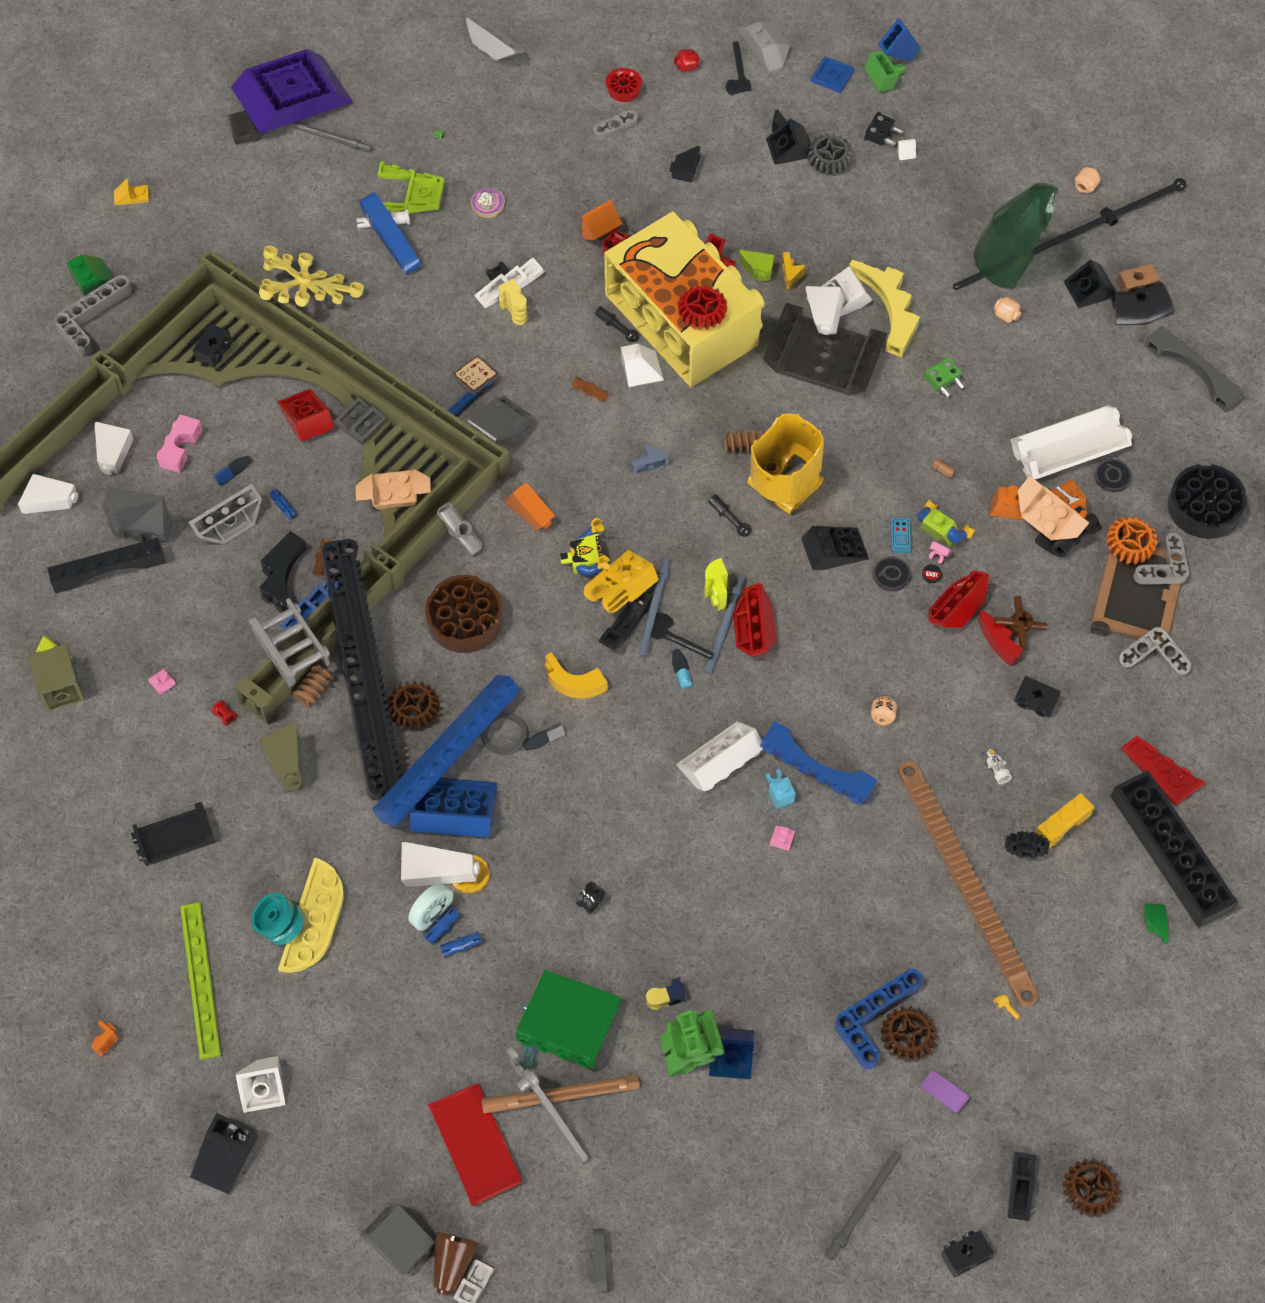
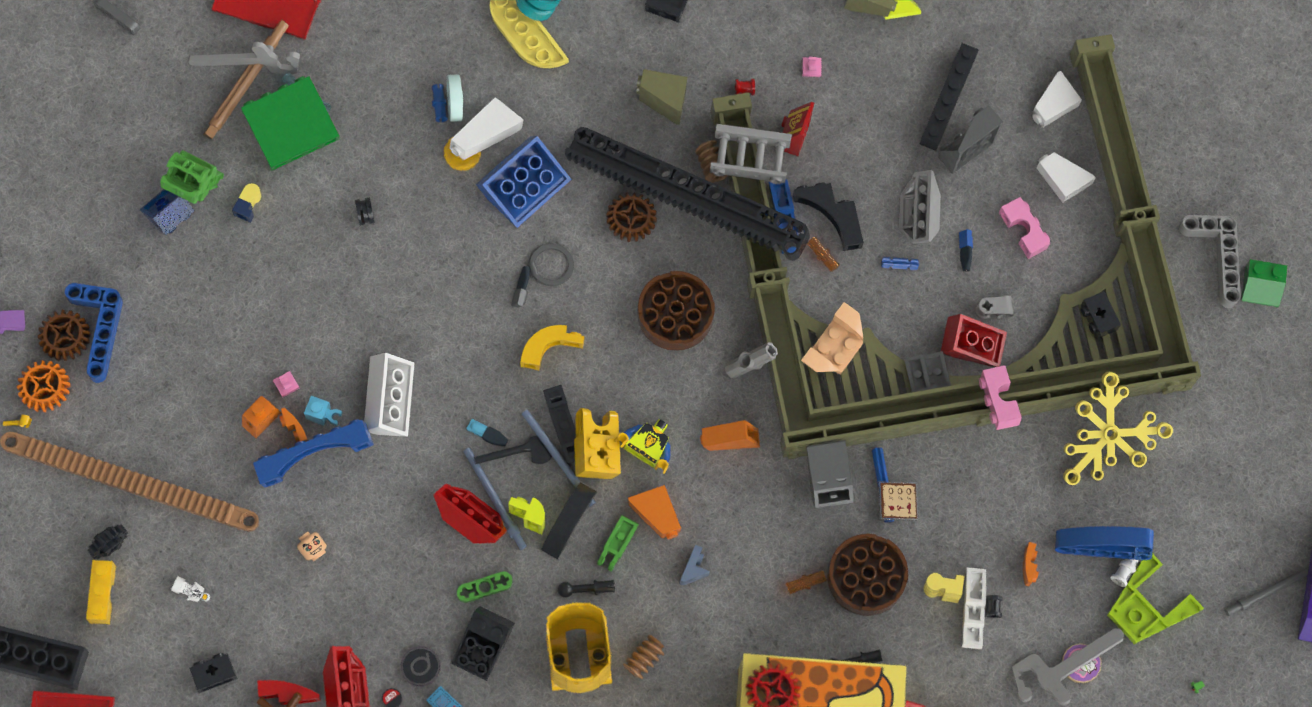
camera: 125 degrees right, 10 degrees up
(232, 638) = (797, 125): none -> red slope
(264, 419) = (997, 307): none -> light grey piece
(336, 358) = (1003, 413): none -> bright pink arch
(446, 750) = (568, 205): blue brick -> none
(451, 269) = (1029, 569): none -> orange slope
(461, 944) = (413, 104): blue pin -> none
(516, 207) = (1051, 678): none -> light grey piece
(549, 353) = (863, 594): none -> reddish brown brick
(630, 513) = (657, 511): none -> orange slope
(640, 365) = (793, 640): white slope -> none
(677, 521) = (618, 541): none -> bright green hinge
(690, 559) = (568, 520): none -> black slope
(794, 572) = (472, 597): none -> bright green beam
(809, 804) = (292, 423): none -> orange slope
(825, 827) = (260, 416): none -> orange torso
(953, 1012) = (36, 399): none -> orange gear

